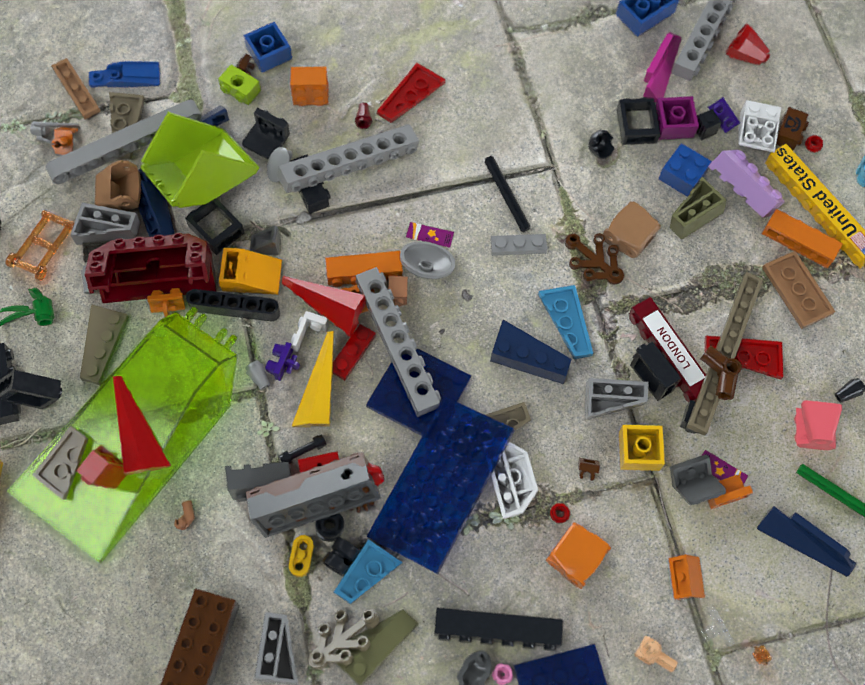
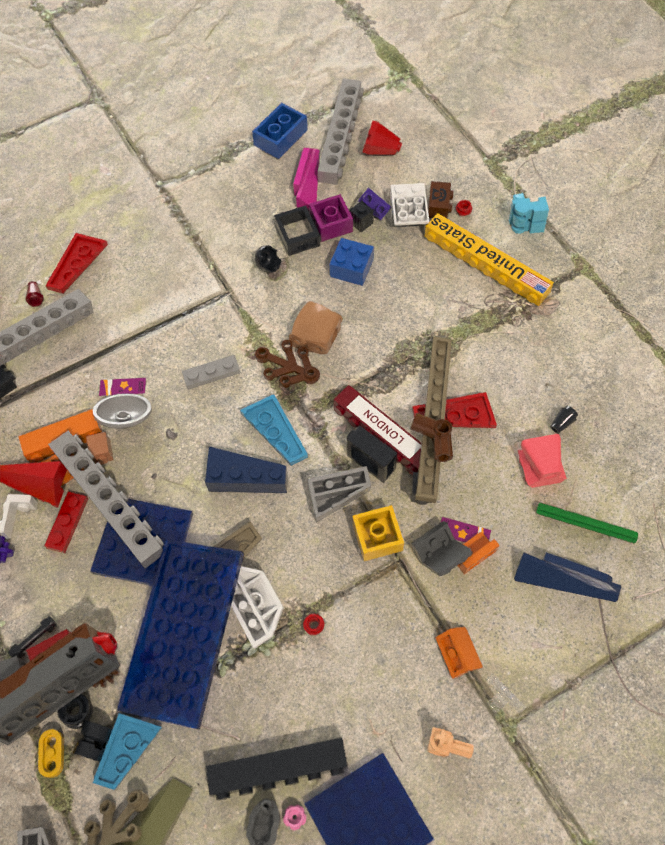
camera: 10 degrees left, 5 degrees down
(316, 400) = (37, 583): yellow wedge -> none
(507, 194) = (189, 328): black axle -> none
(578, 554) = (341, 662): orange piece -> none
(588, 465) = (330, 567): reddish brown tile -> none
(697, 210) = (373, 293): olive wedge -> none
(747, 182) = (412, 255): lavender wedge -> none
(761, 655) = (556, 710): clear orange plate -> none
(798, 289) = (487, 340): medium nougat plate -> none
(802, 238) = (477, 293): orange brick -> none

